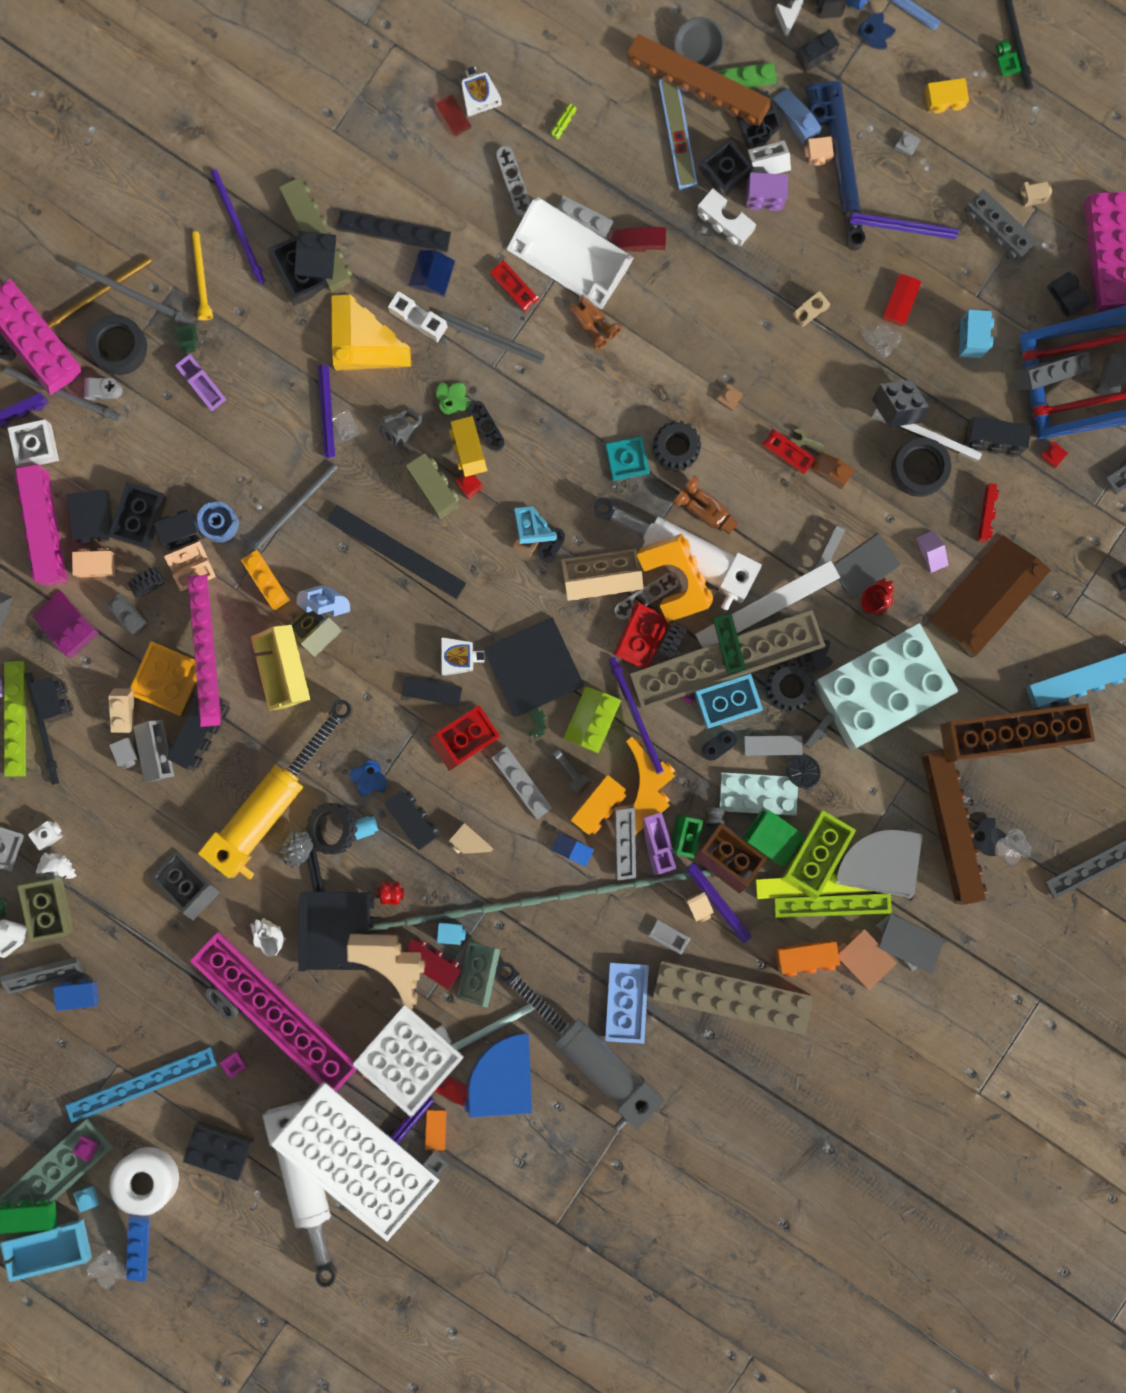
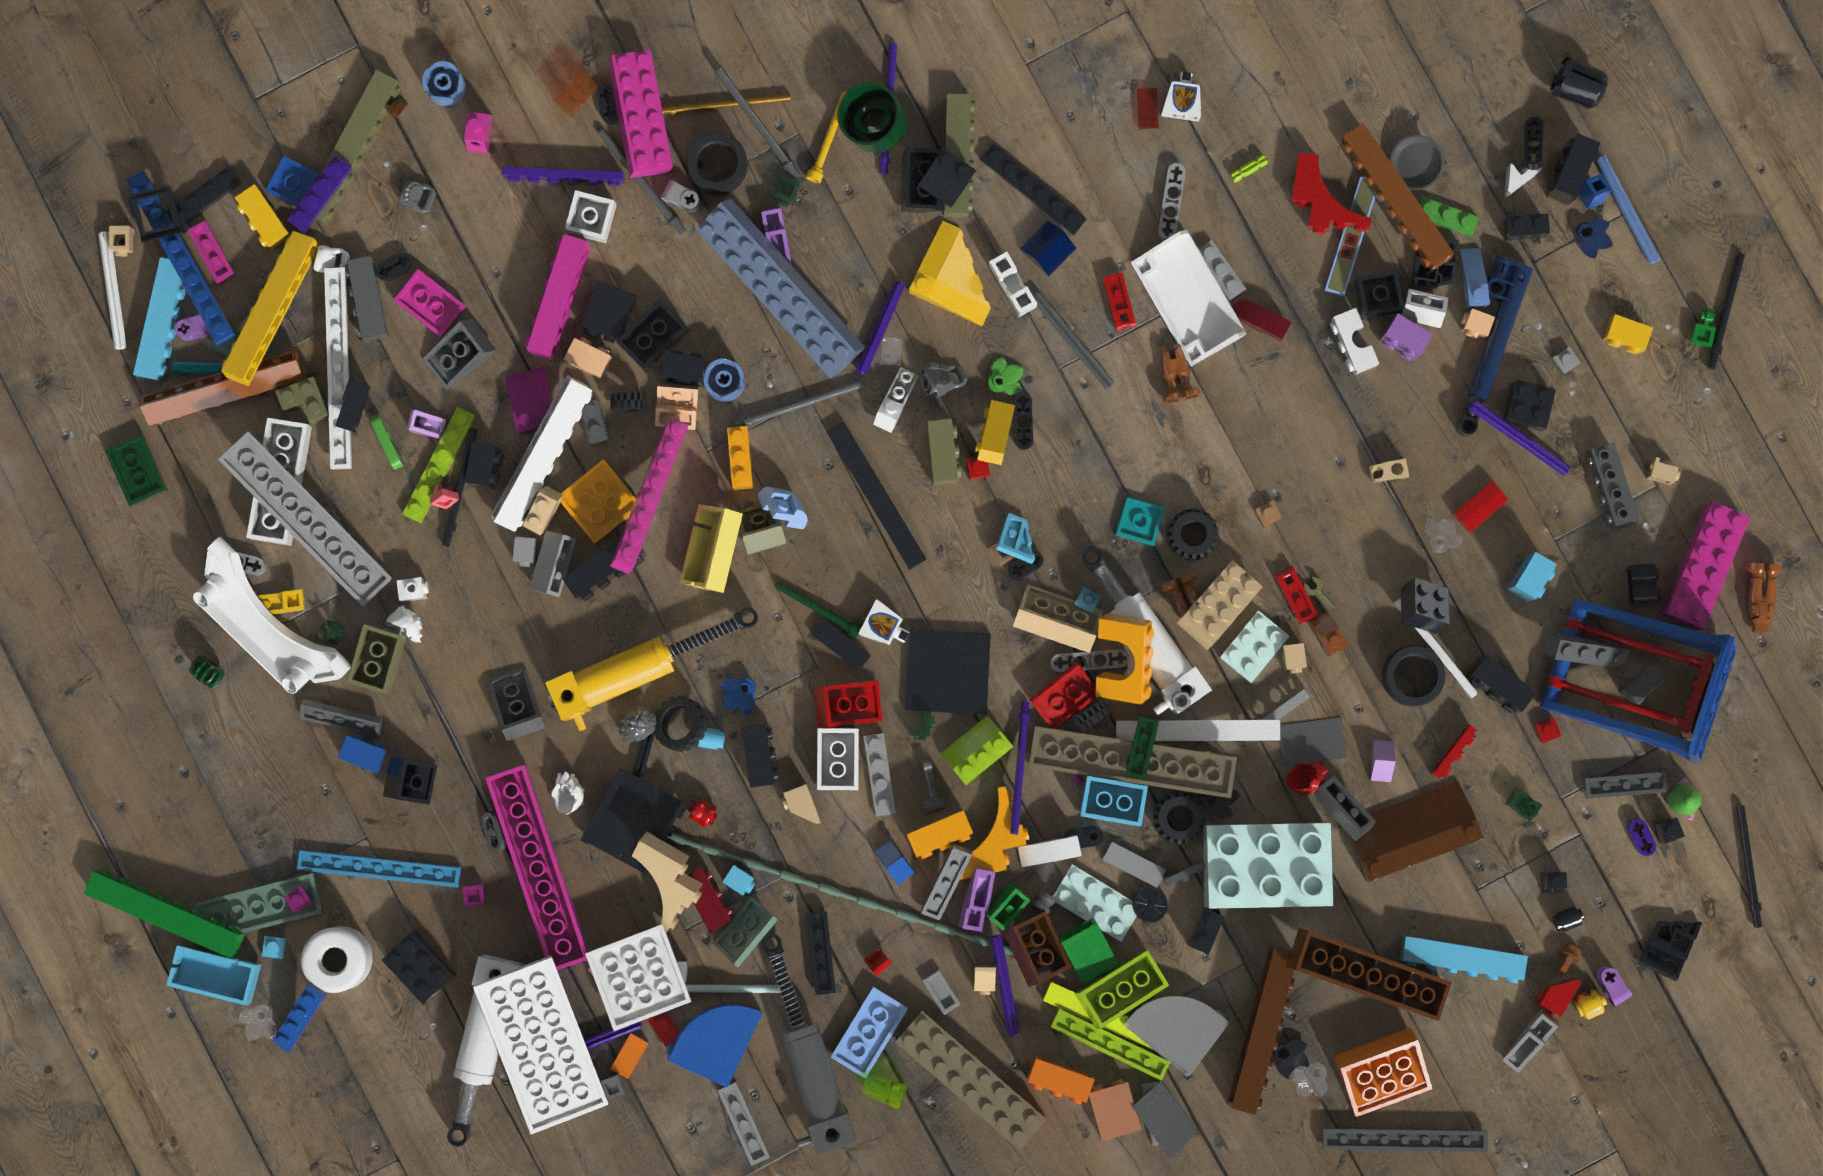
camera: 30 degrees right, 0 degrees up
(32, 744) = (443, 497): none -> coral tile
(94, 663) = (541, 453): none -> white brick
(128, 997) = (409, 780): none -> black slope
(209, 234) = (856, 106): none -> dark green piece
(224, 420) = (780, 288): none -> sand blue brick
(370, 464) = (895, 400): none -> white slope
(434, 672) = (851, 627): none -> dark green piece
(480, 788) = (838, 759): none -> white brick
(551, 957) = (821, 953): none -> black plate
(562, 1135) = (743, 1123): none -> light grey plate
(602, 939) = (877, 961): none -> red plate
(618, 546) = (1087, 600): none -> medium azure tile
(644, 120) = (1325, 210): none -> red arch
(666, 1045) = (885, 1091): none -> clear neon green plant
(697, 771) = (1049, 851): none -> white slope
(730, 492) = (1219, 605): none -> tan piece
(740, 582) = (1175, 700): none -> light grey plate
(776, 512) = (1254, 646): none -> light aqua plate
(814, 504) = (1294, 657): none -> tan brick
(862, 769) = (1206, 931): none -> black brick
(897, 194) = (1529, 405): none -> black brick
(923, 606) = (1344, 808): none -> dark grey brick
(1067, 526) = (1523, 804): none -> clear green bracket
(1070, 807) = (1383, 1072): none -> orange slope

